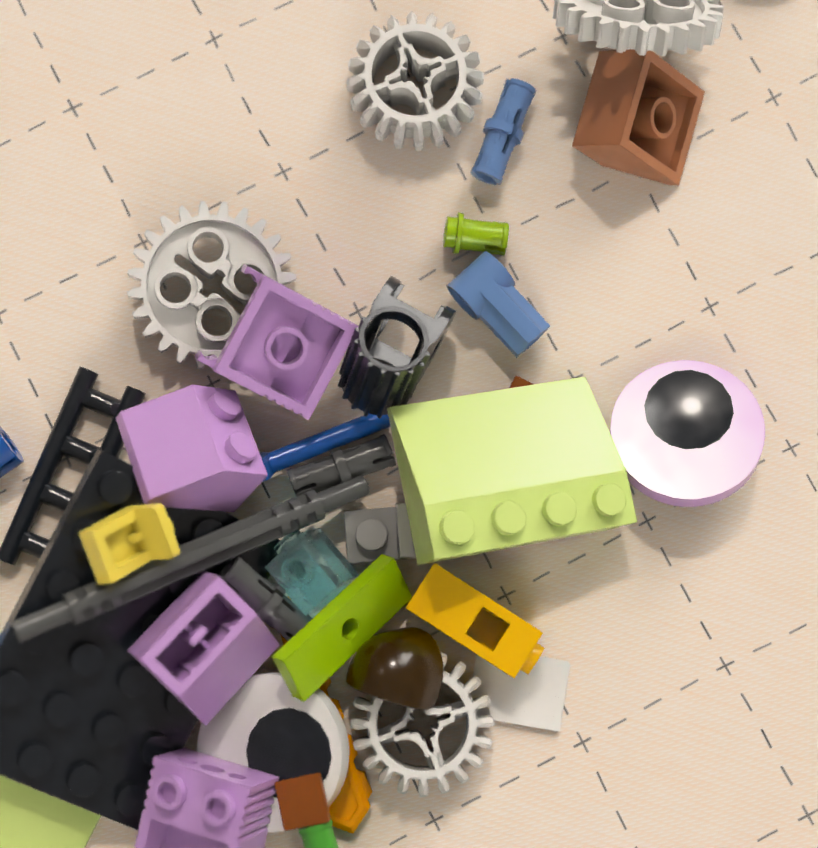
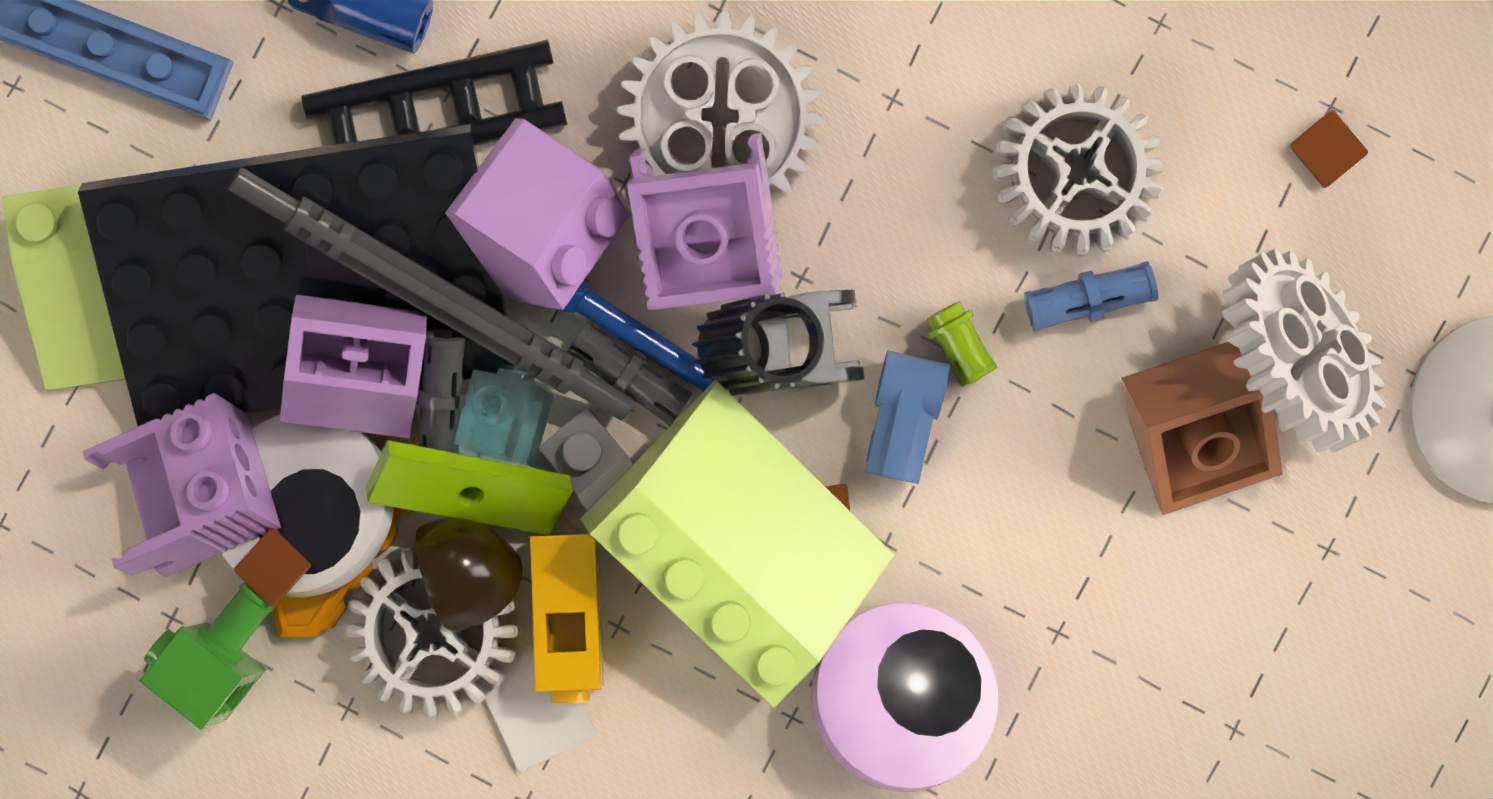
camera: 60 degrees right, 5 degrees up
(129, 541) = (399, 223): light yellow bracket -> none

